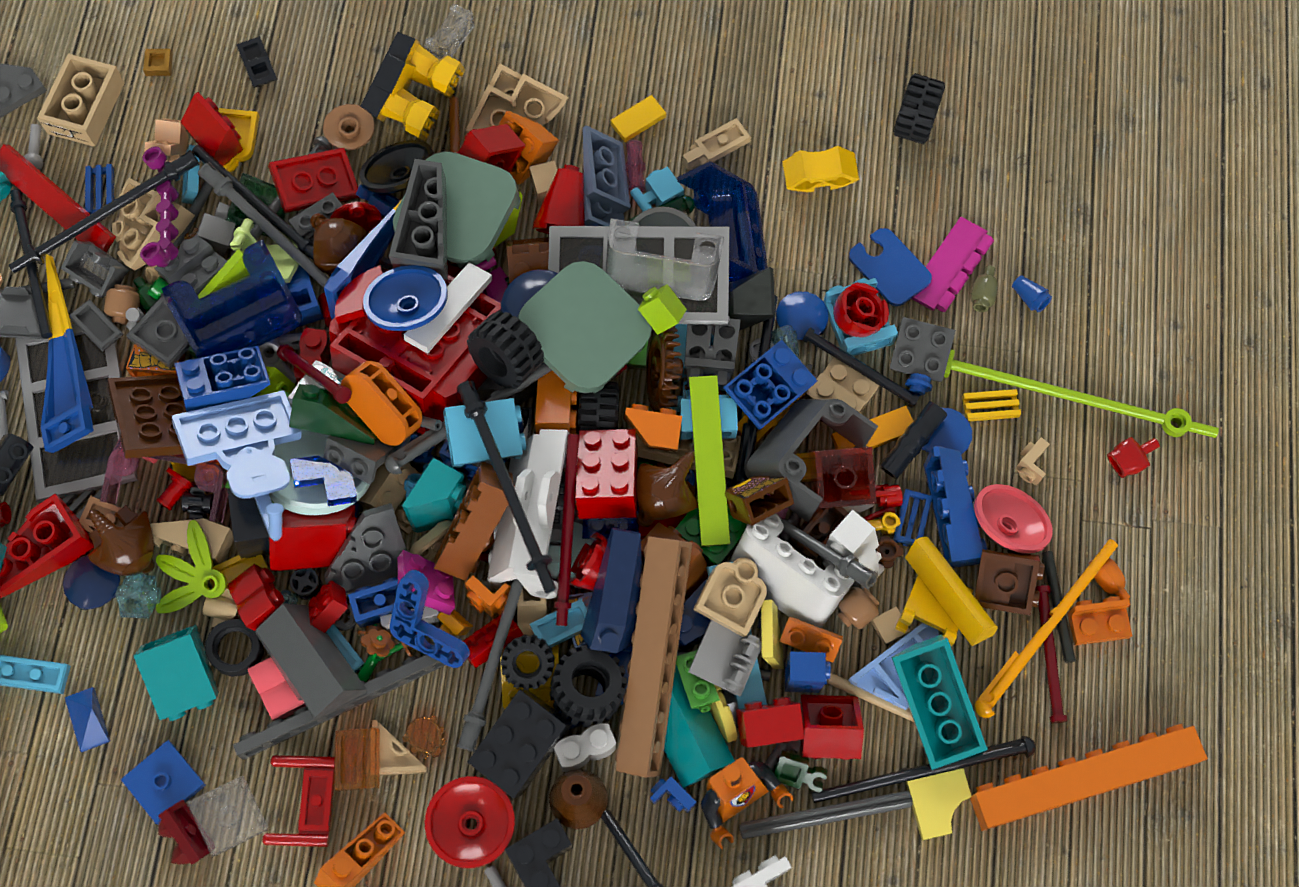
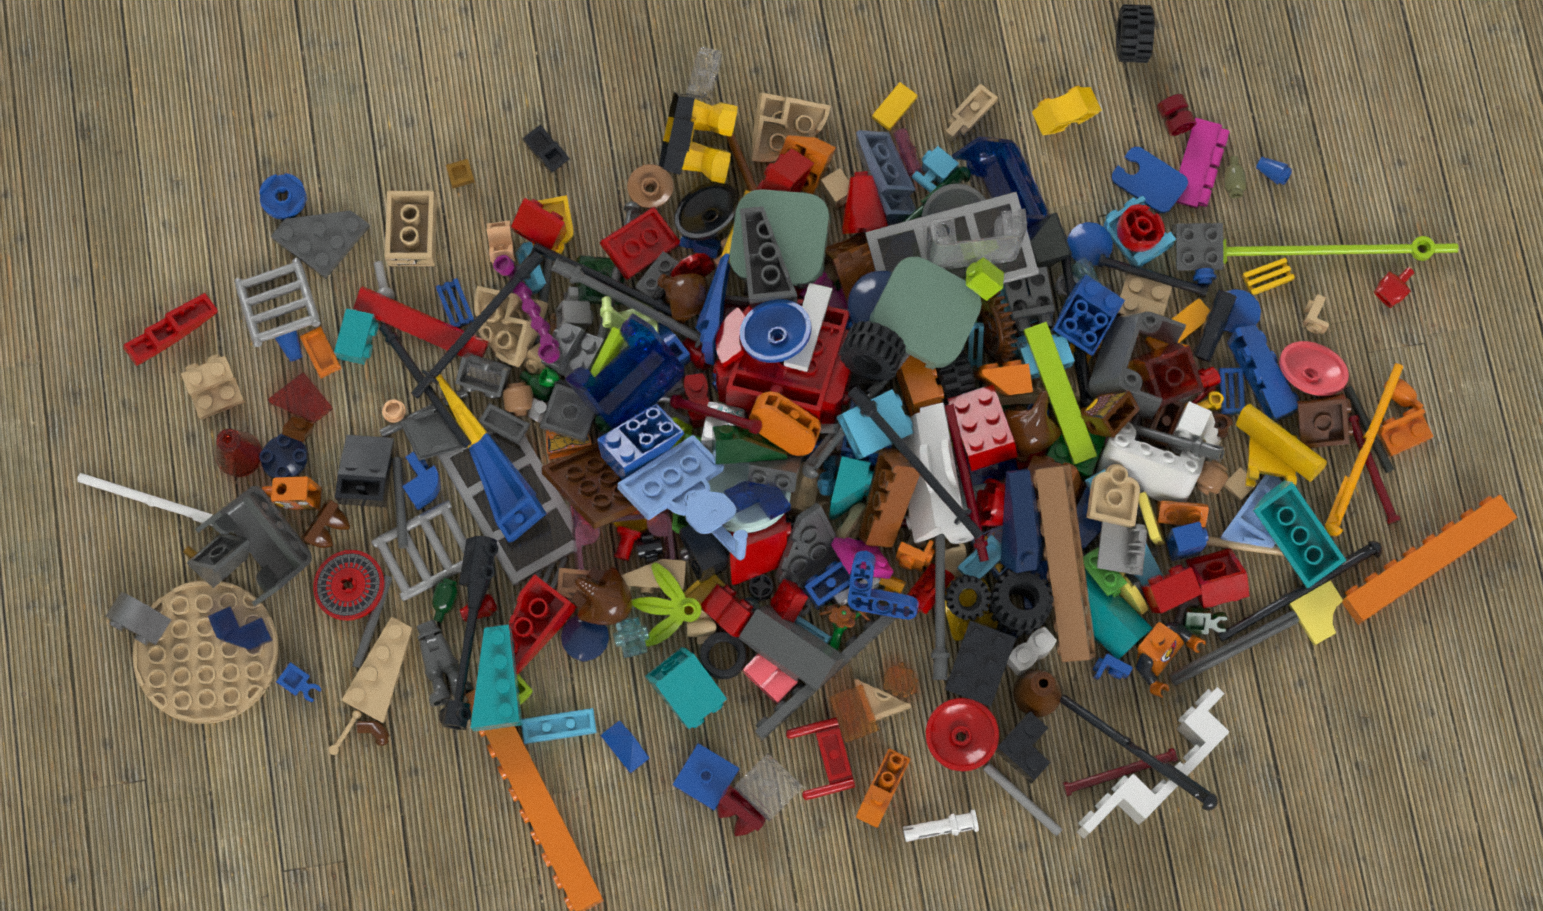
camera: 15 degrees left, 5 degrees up
(636, 363) = (978, 361): none -> medium azure tile
(939, 206) = (1176, 115): none -> dark red wheel

